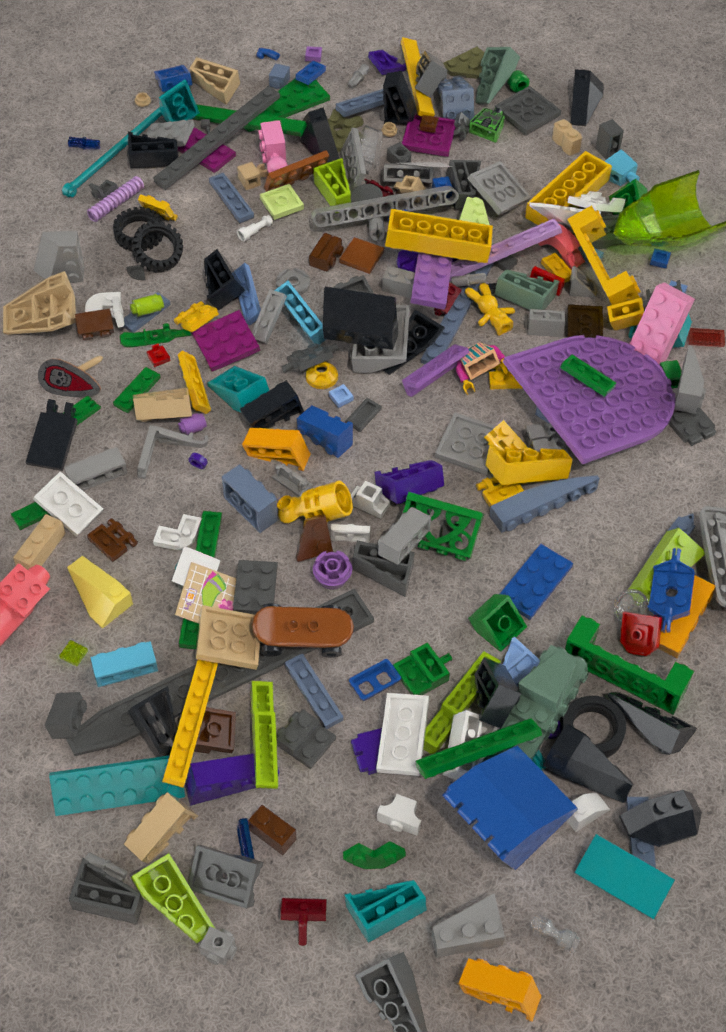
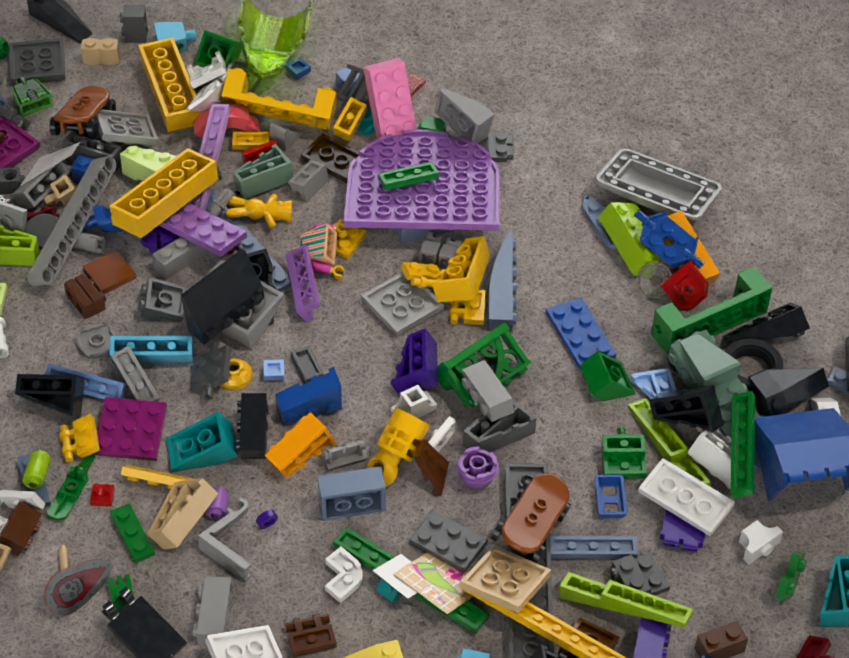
camera: 60 degrees left, 5 degrees down
(491, 152) = (80, 109): none -> dark orange piece

